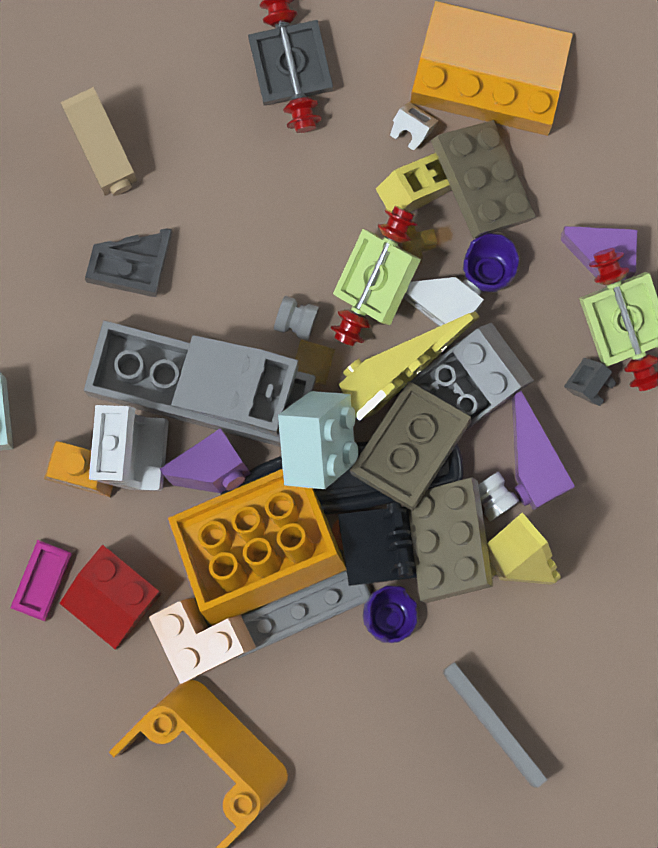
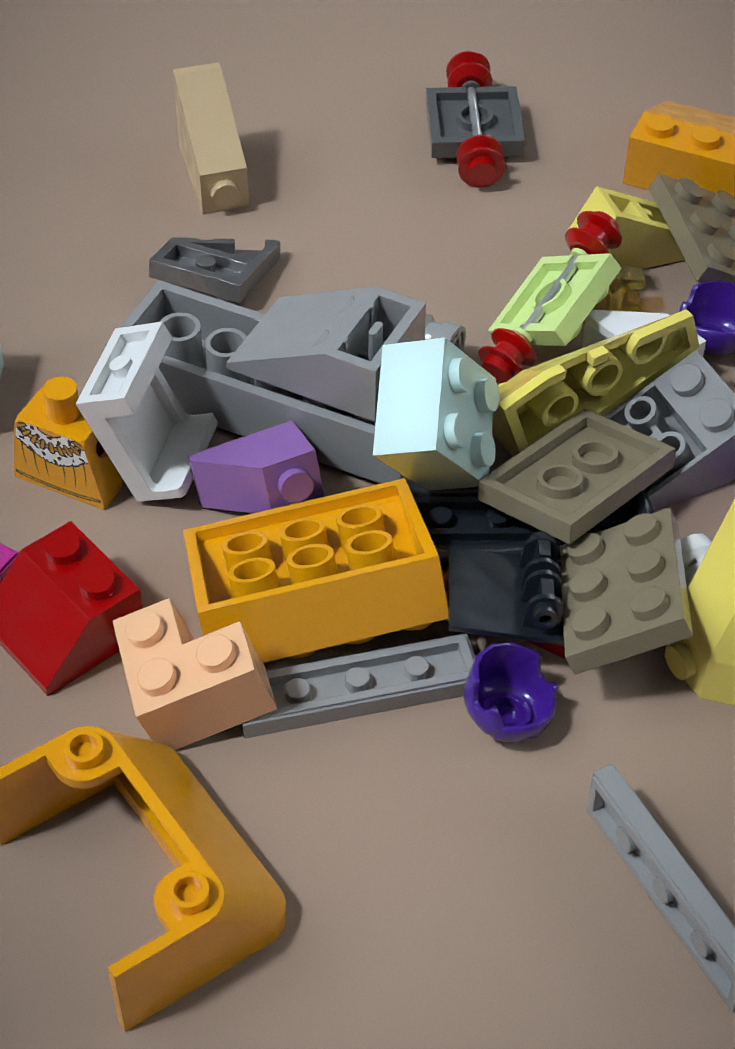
camera: 10 degrees right, 35 degrees down
(415, 121) = (625, 178): white tile -> none

